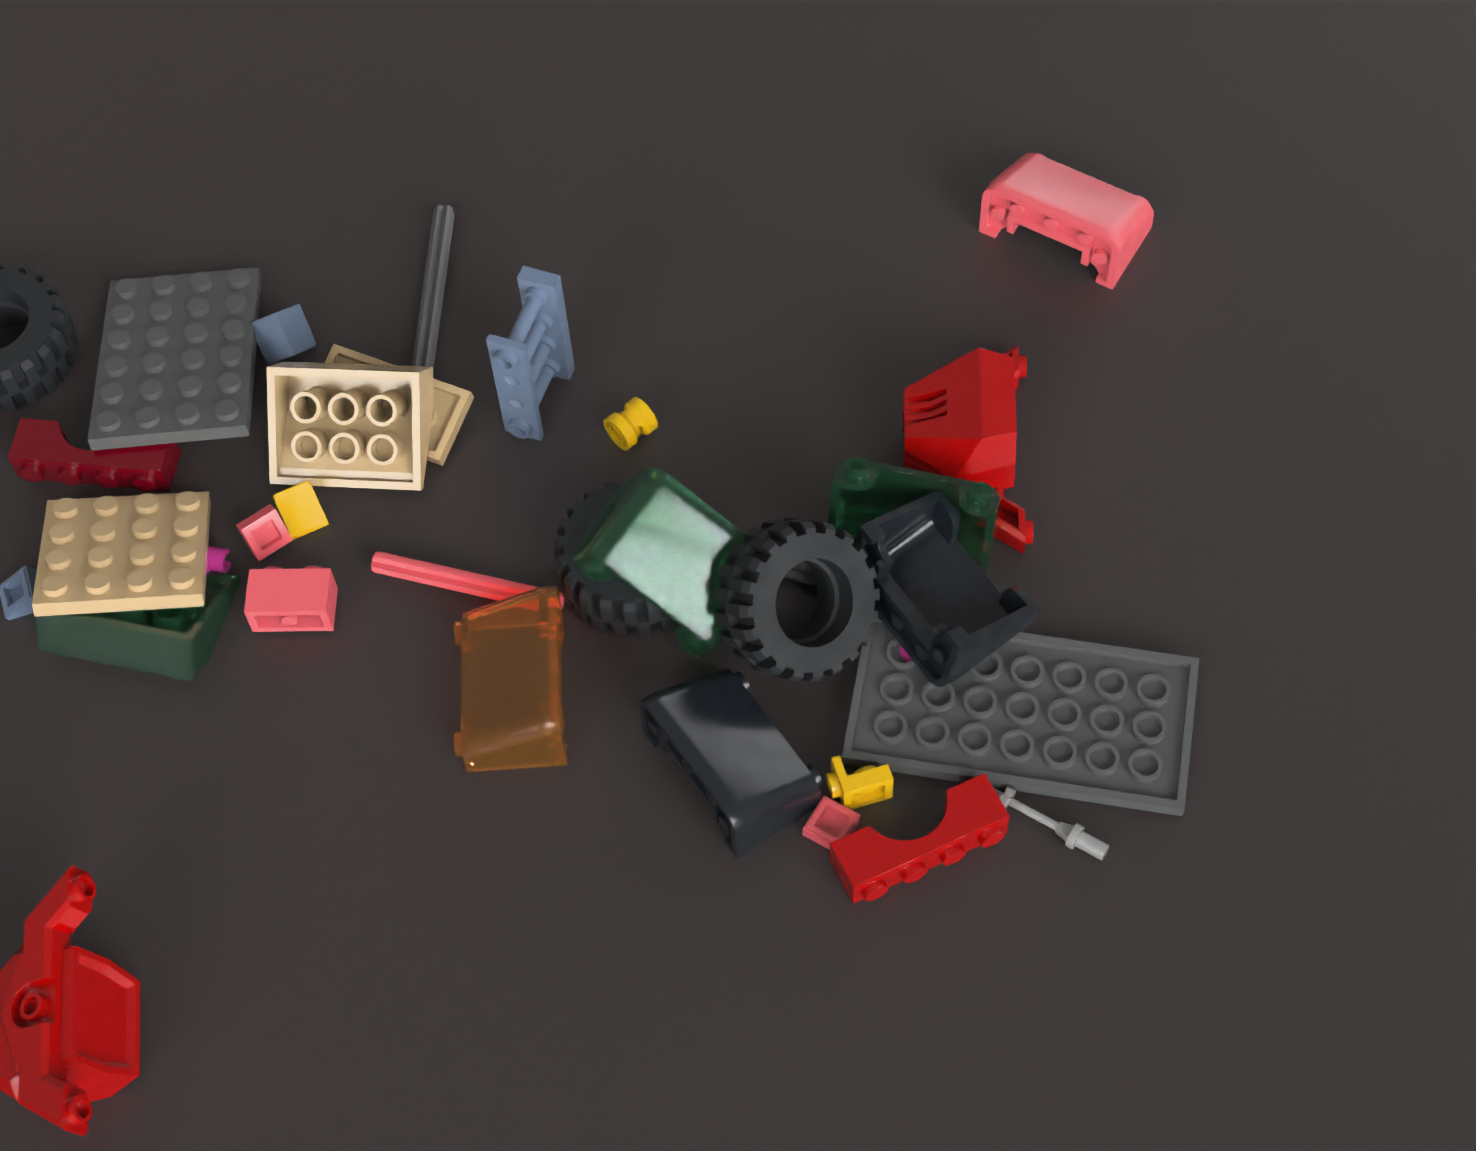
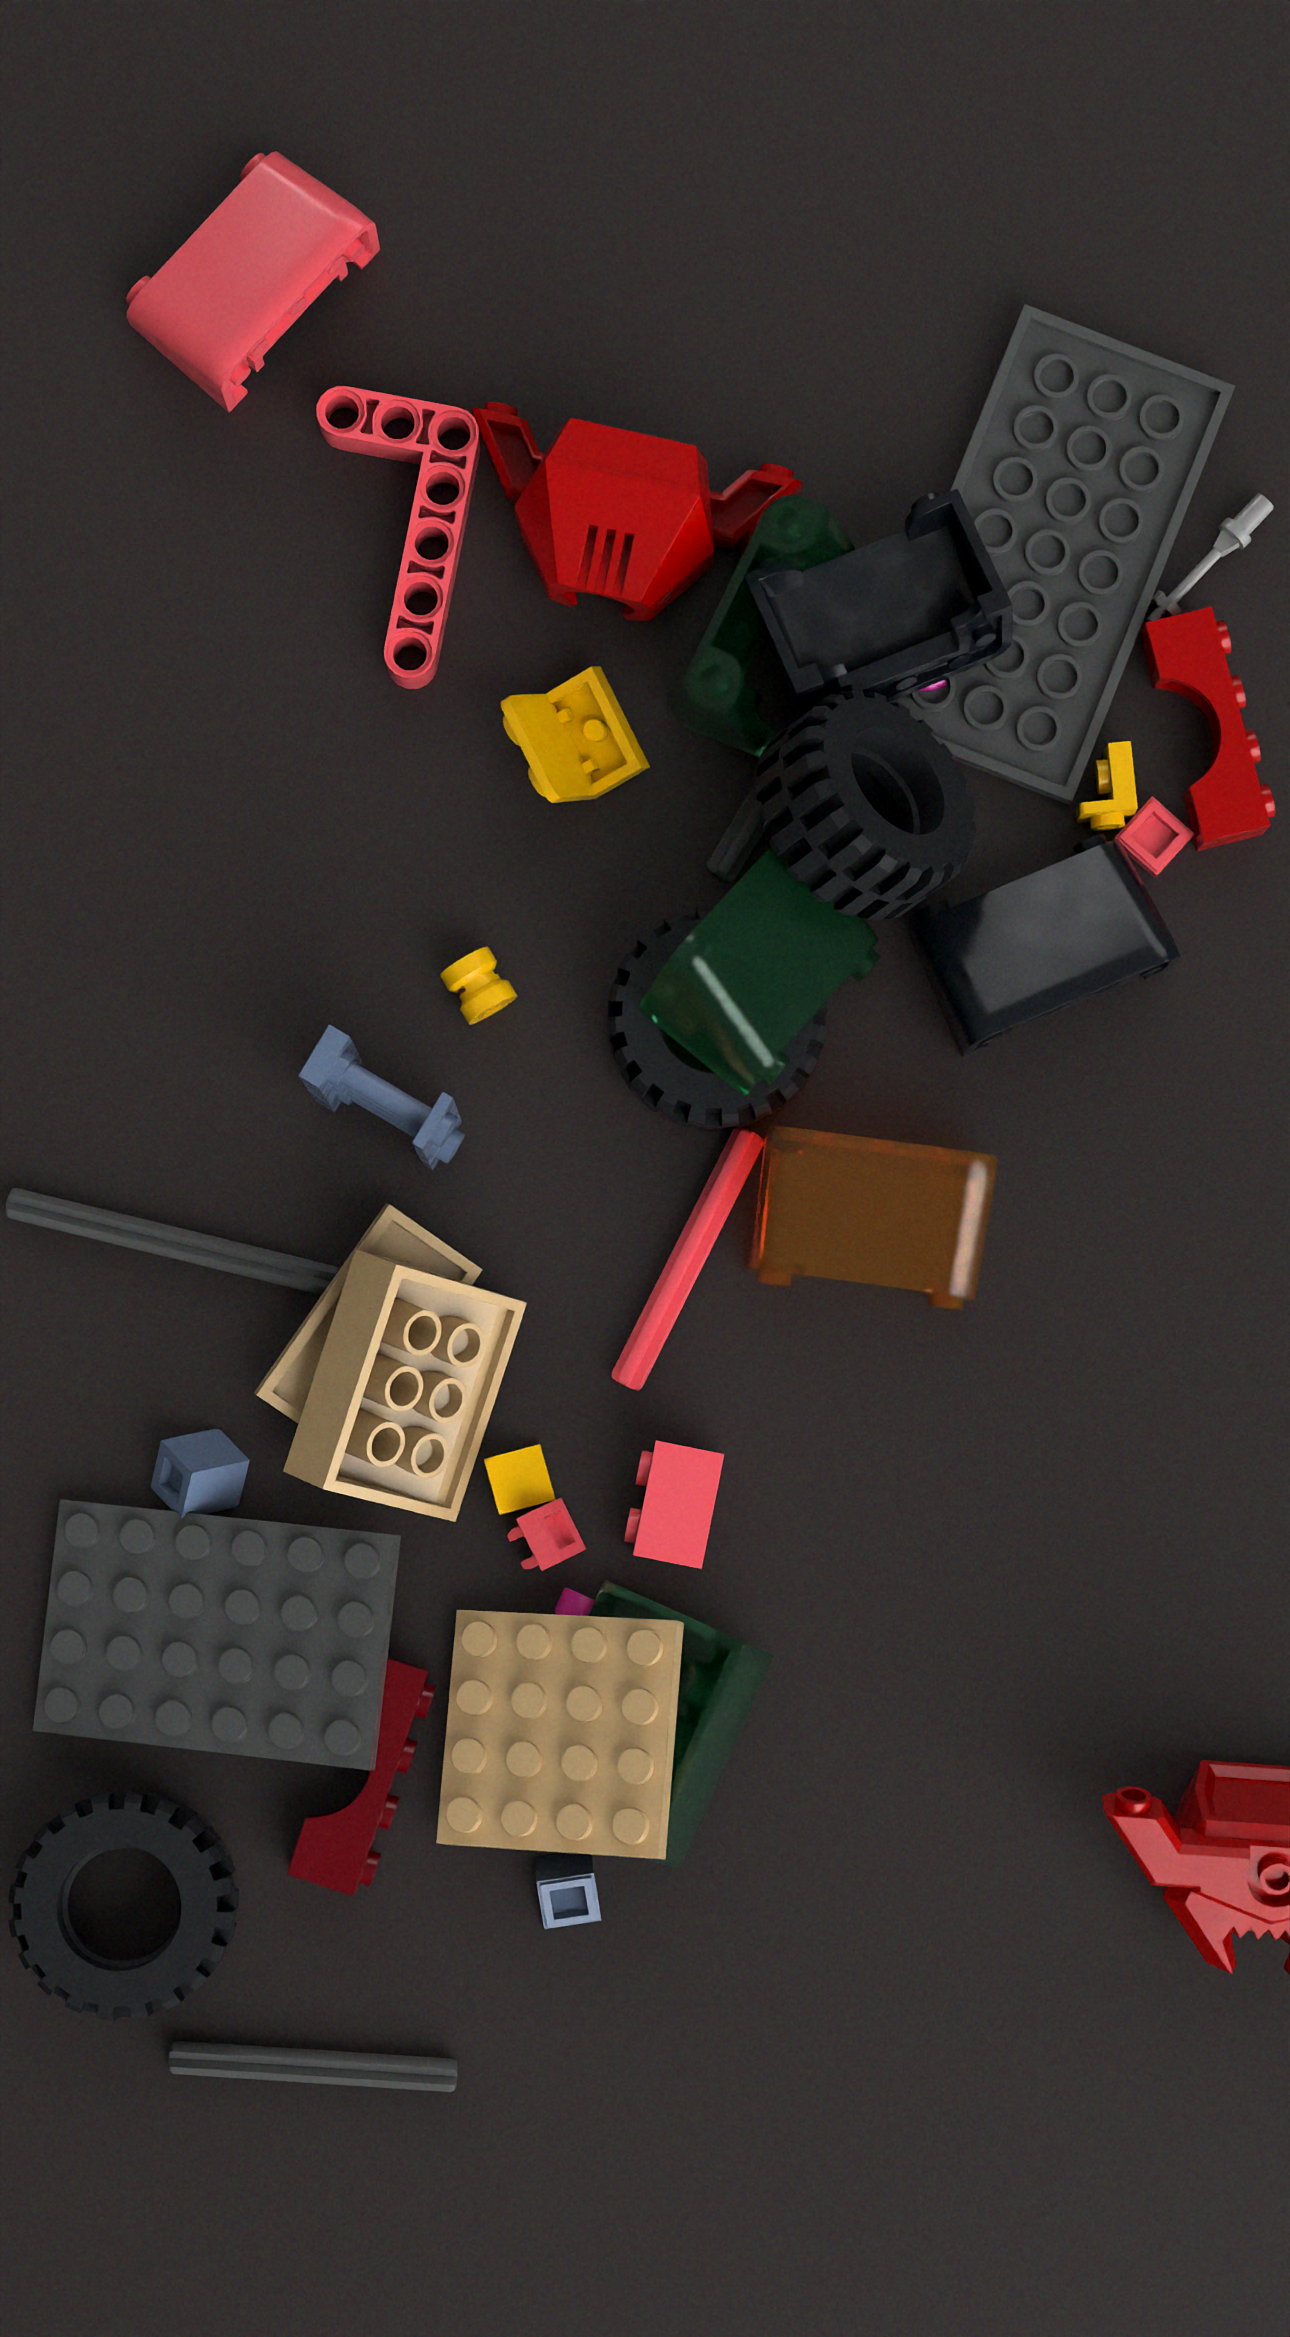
camera: 85 degrees left, 25 degrees up
(804, 435) = (574, 738): none -> yellow bracket
(989, 329) = (426, 518): none -> coral beam

